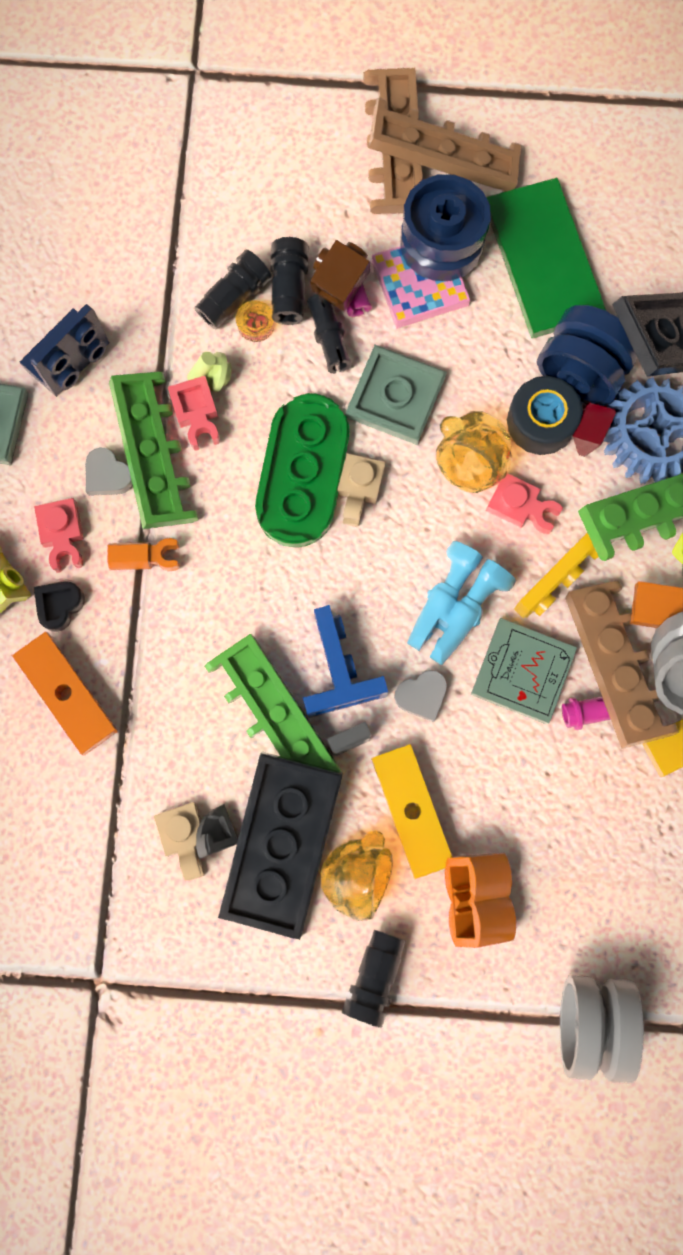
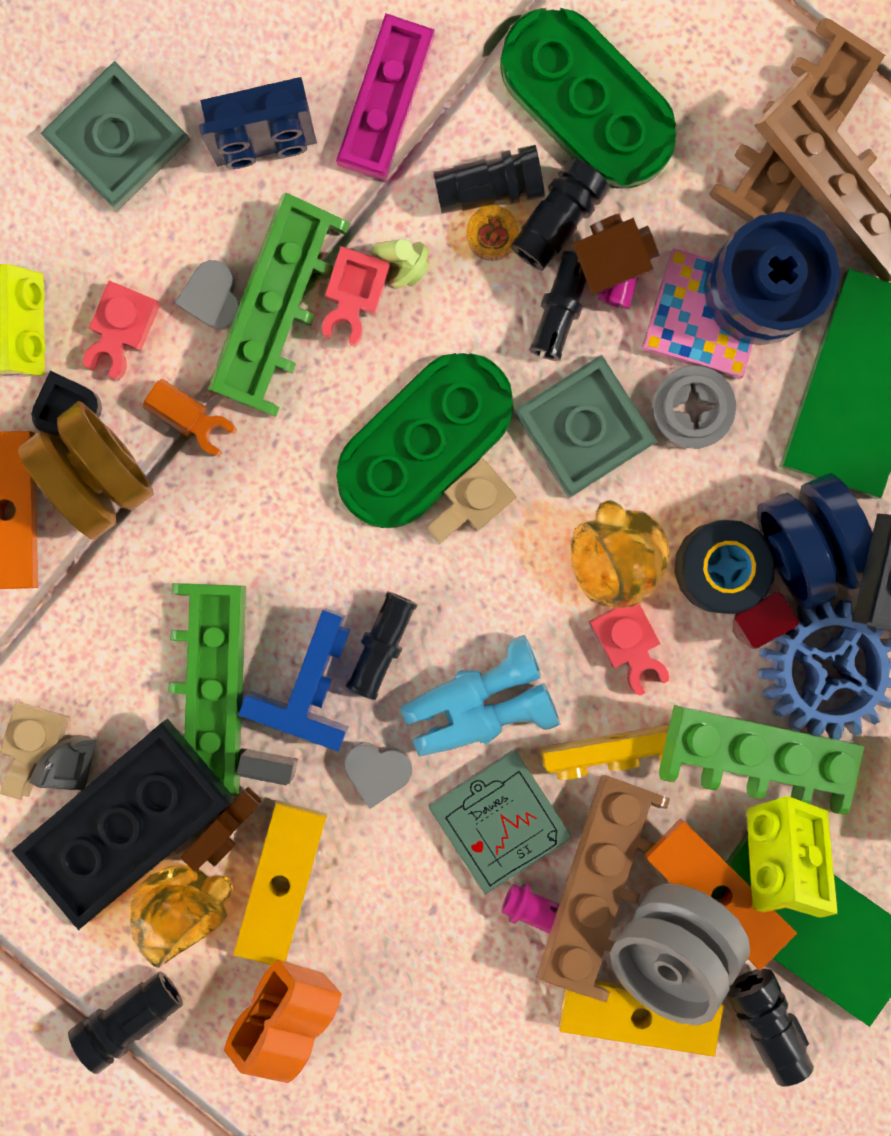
camera: 30 degrees right, 10 degrees up
(103, 618) = (85, 471): none -> pearl gold wheel
(133, 288) = (385, 97): none -> dark pink tile
(255, 206) = (588, 96): none -> green tile
(349, 813) = (216, 840): none -> reddish brown plate
(366, 611) = (381, 645): none -> black pin
(454, 321) = (709, 389): none -> light grey gear

